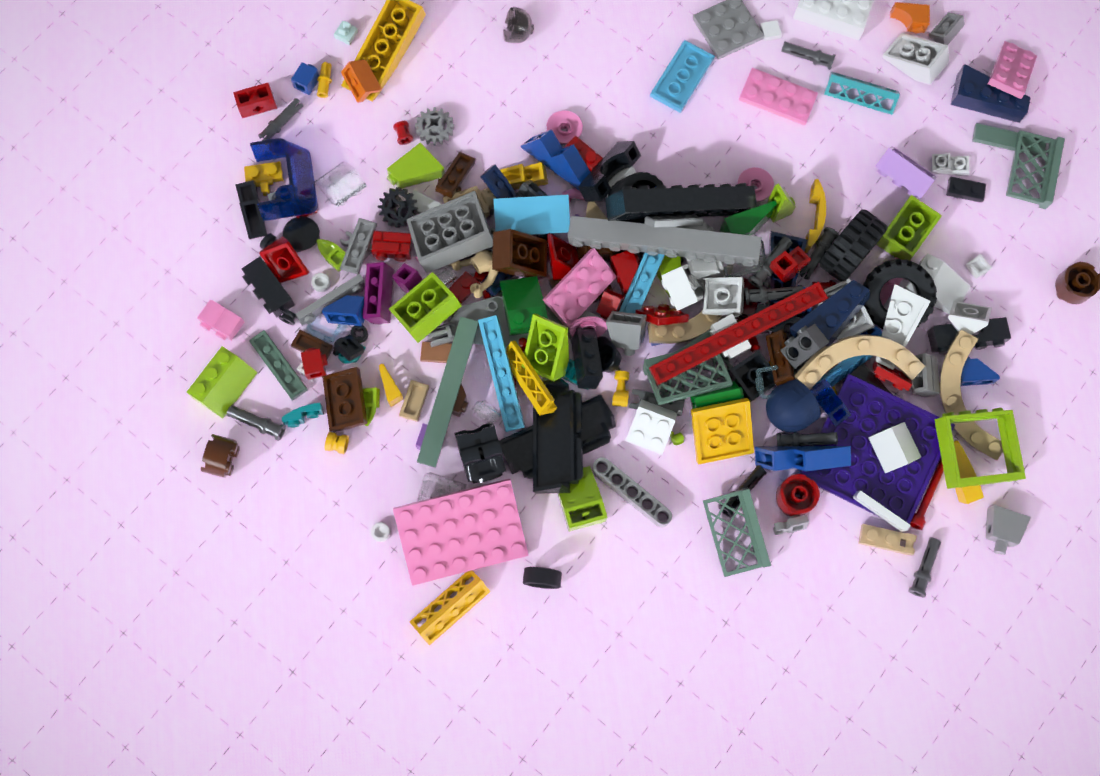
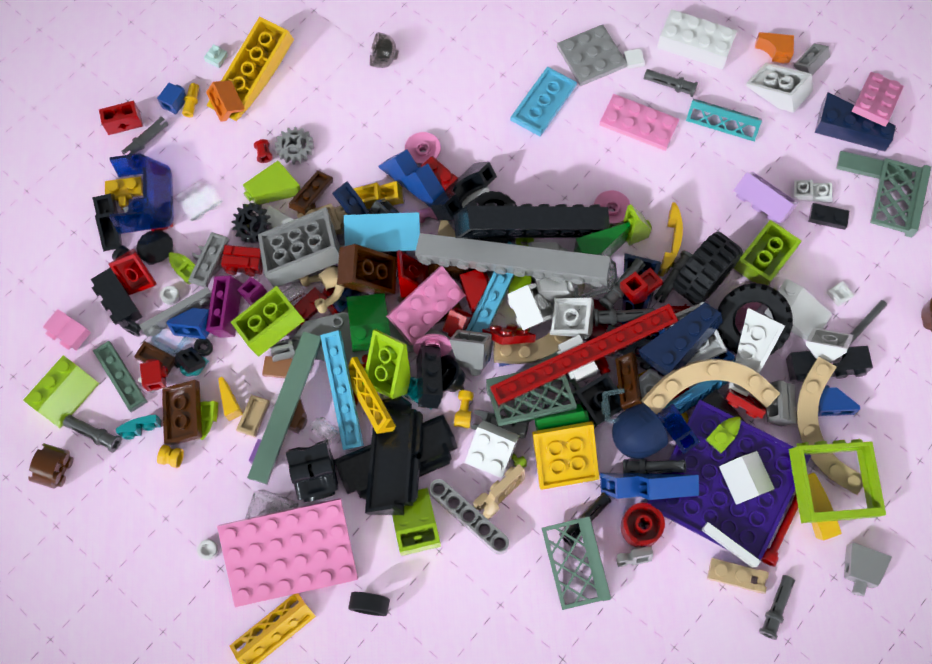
camera: 10 degrees right, 5 degrees down
(660, 467) = (499, 491): none -> tan plate
(673, 221) = (512, 239): light grey tile -> none
(804, 346) = (652, 368): dark grey brick -> none
(873, 406) = (724, 434): none -> lime plate
(1005, 291) = (868, 319): none -> dark grey bar

